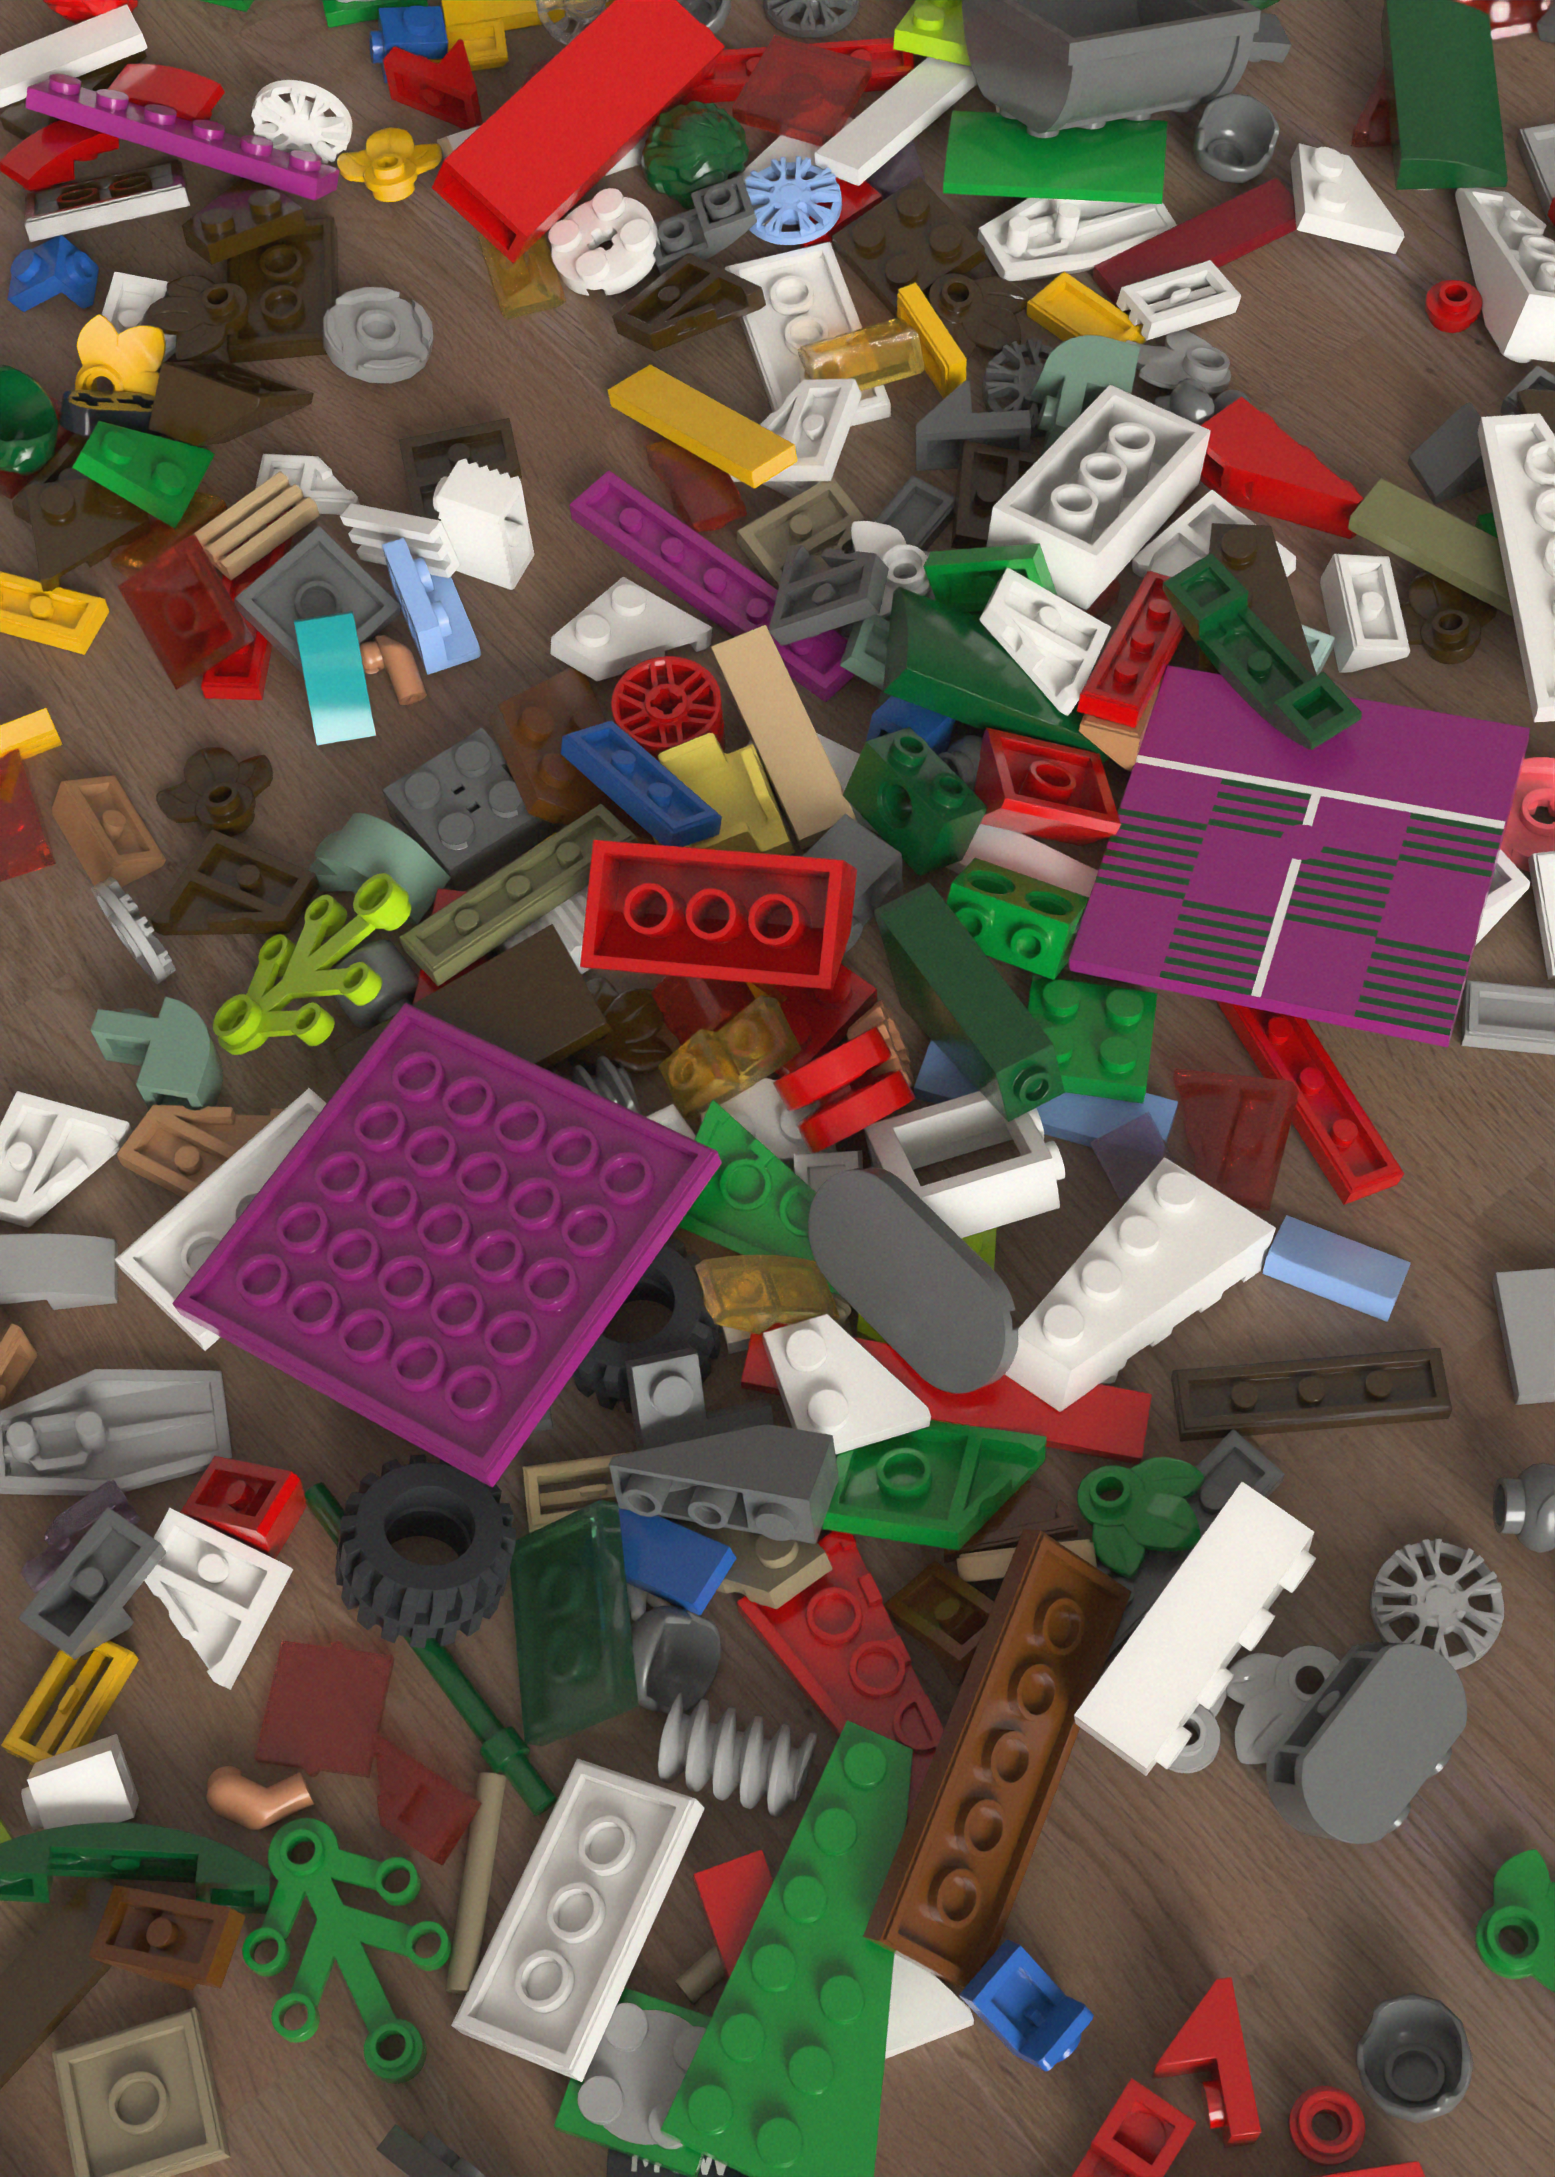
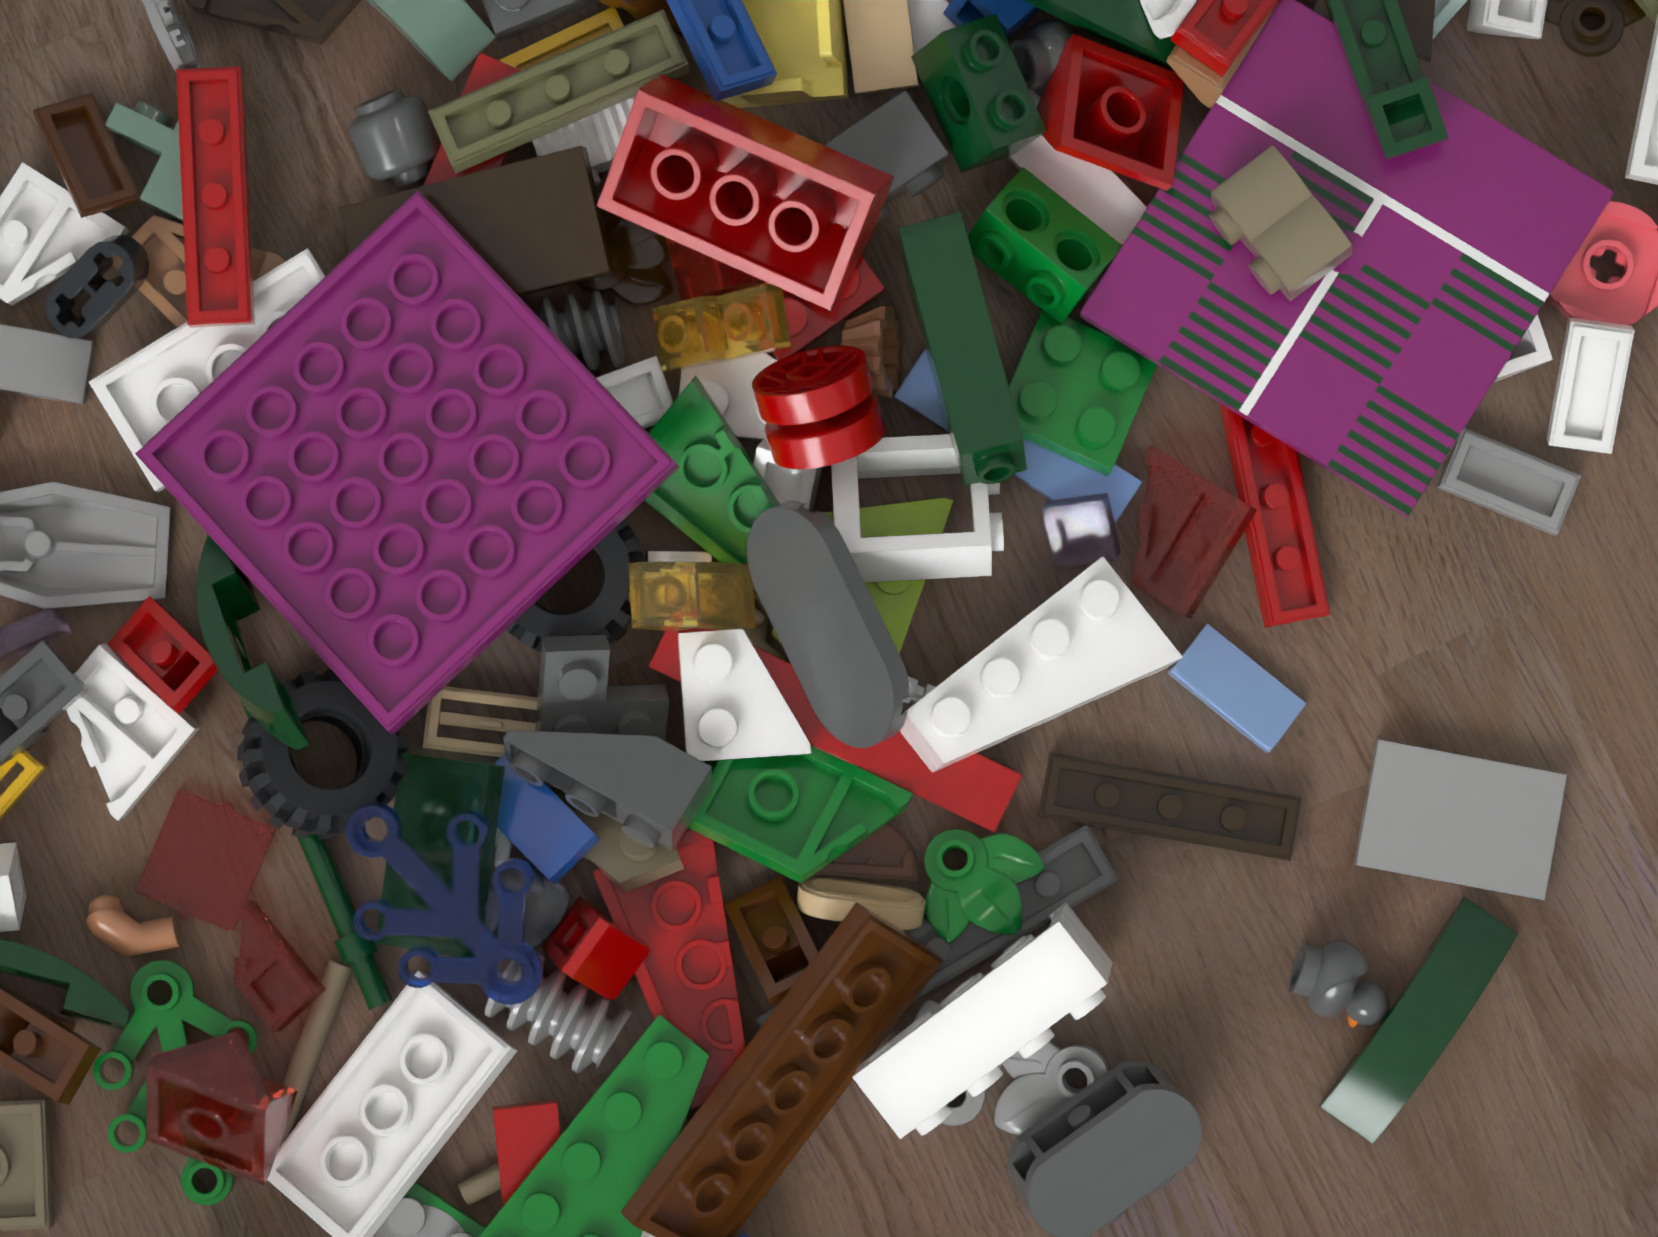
camera: 10 degrees right, 25 degrees up
(80, 1071) = (86, 155): none -> reddish brown tile
(105, 1176) = (106, 296): none -> black beam
(209, 1063) = (215, 196): none -> red tile
(250, 1019) = (411, 74): lime plant -> none
(337, 1473) = (222, 600): none -> dark green slope
(385, 1946) = (217, 1106): none -> clear red slope
(597, 1654) = (452, 910): none -> clear blue plant
(764, 1671) = (595, 950): none -> red slope
(1234, 824) = (1279, 224): none -> dark tan brick
(1438, 1600) = (1214, 1034): light grey wheel -> none

